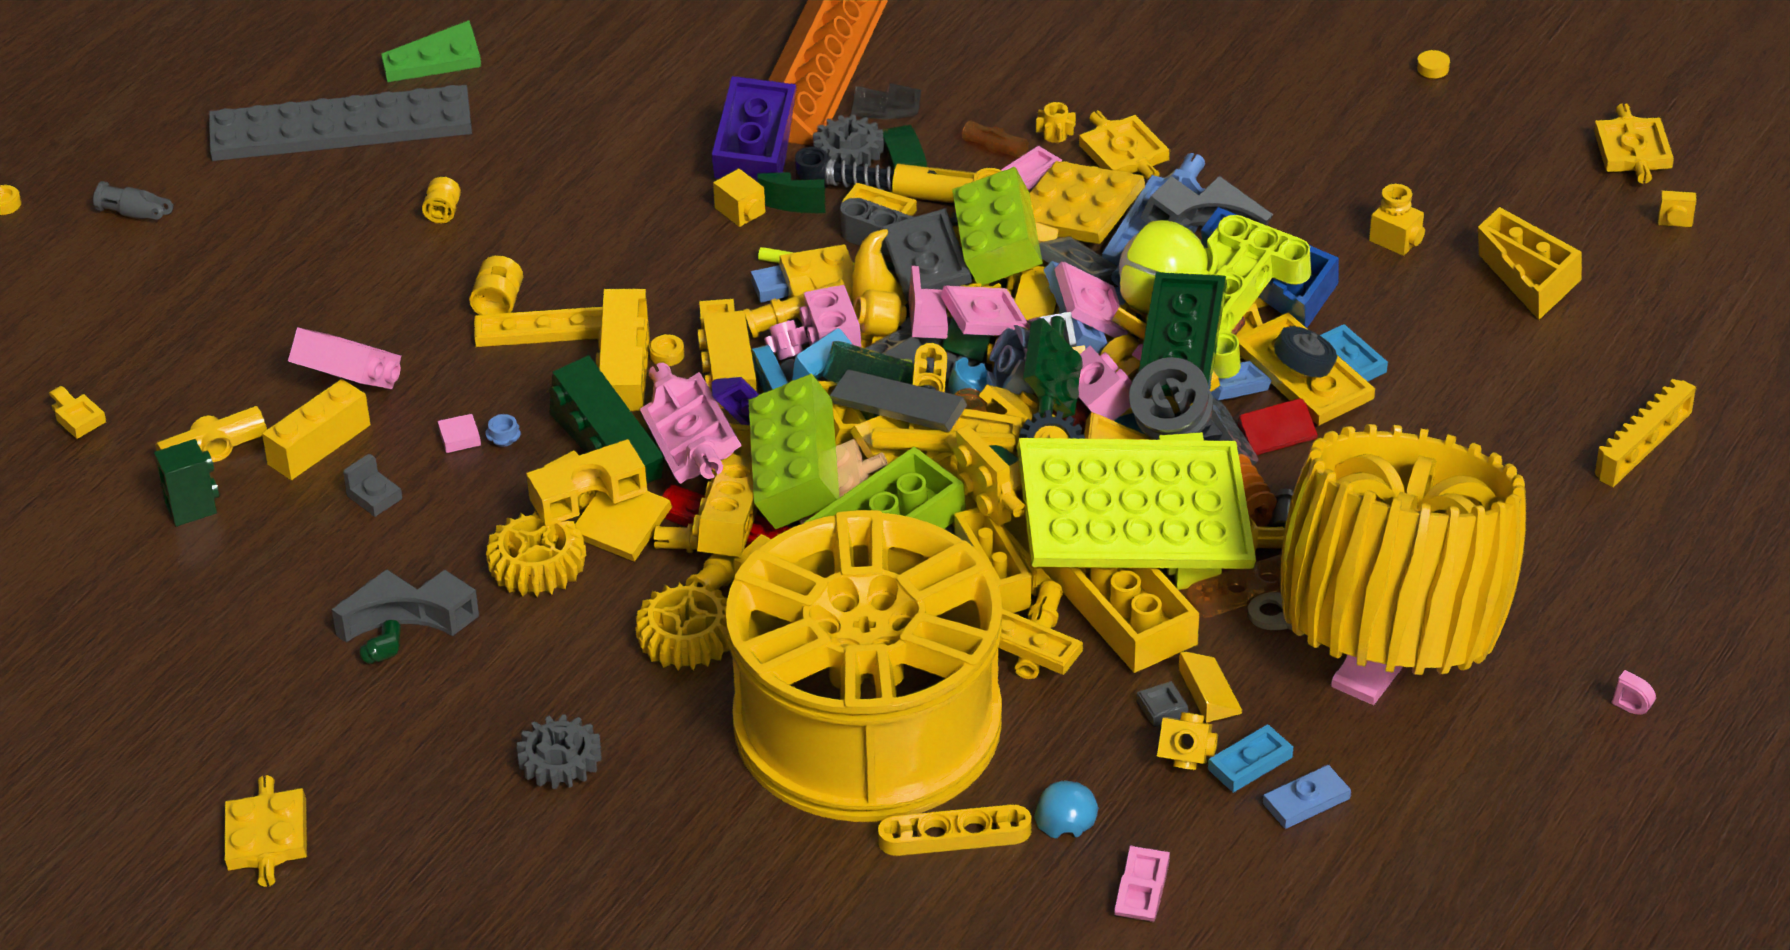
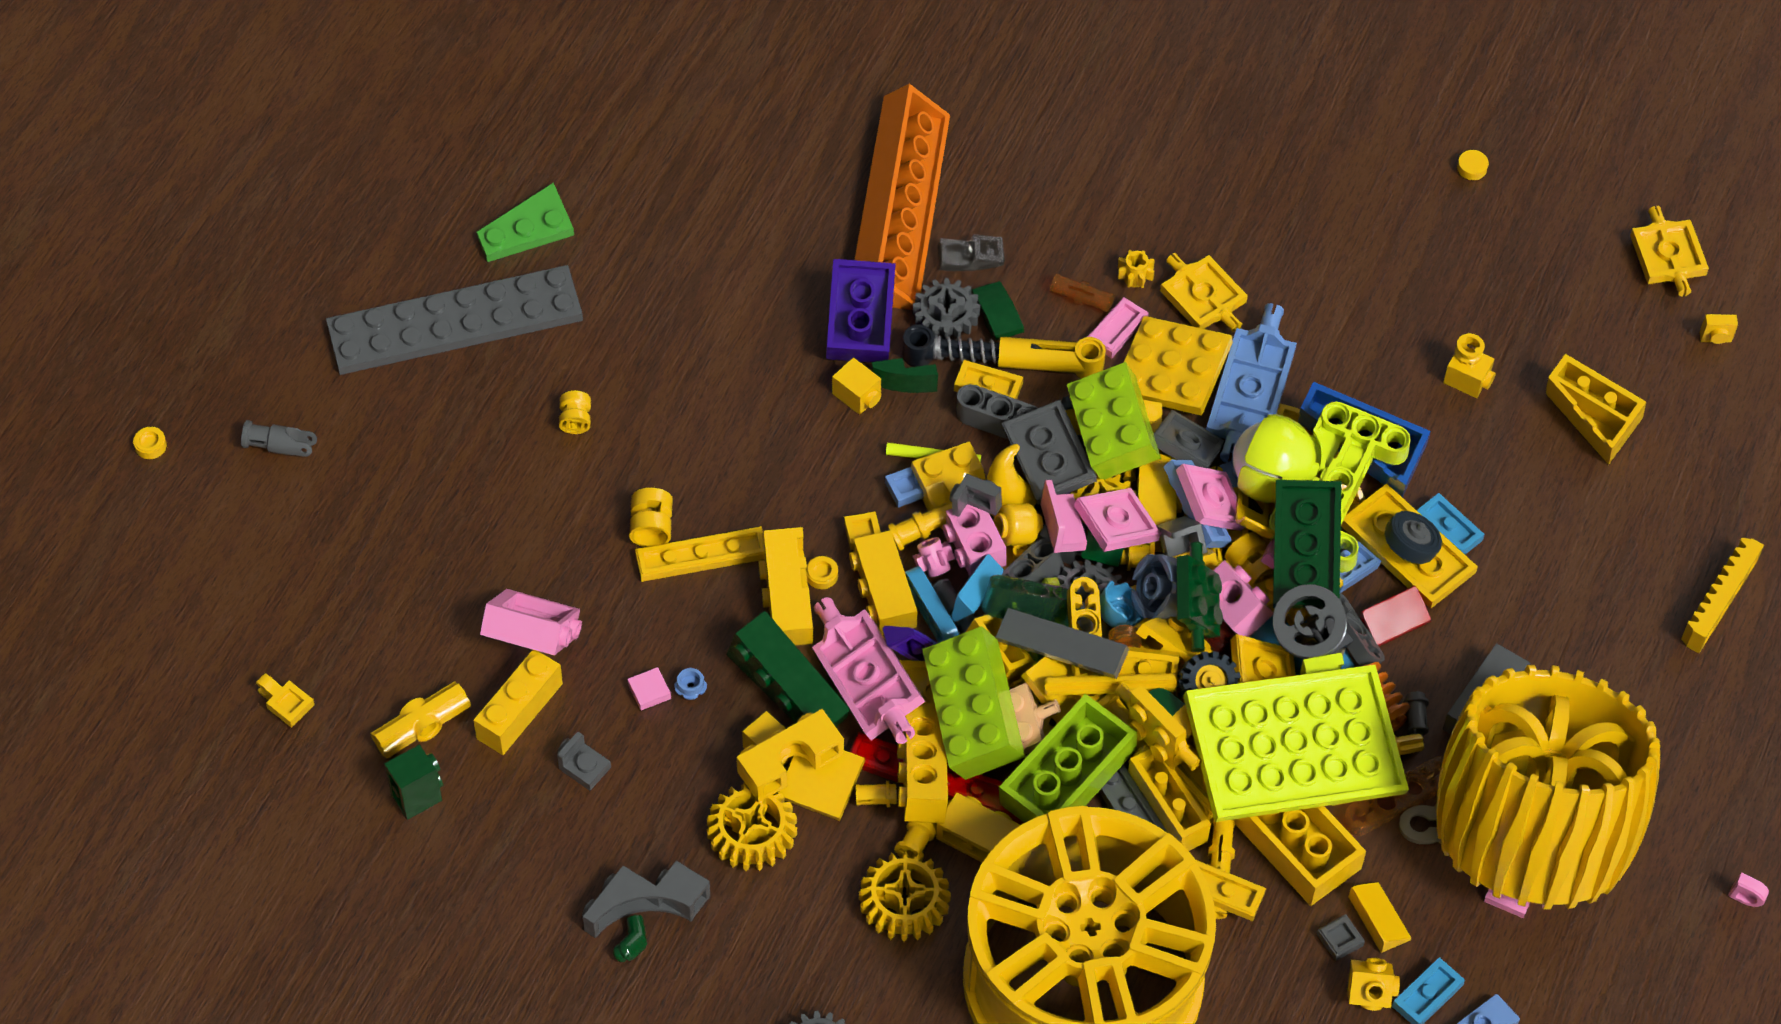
camera: 10 degrees left, 15 degrees up
(835, 274) = (977, 493): none -> dark grey bracket
(1182, 205) = (1306, 365): dark grey arch -> none

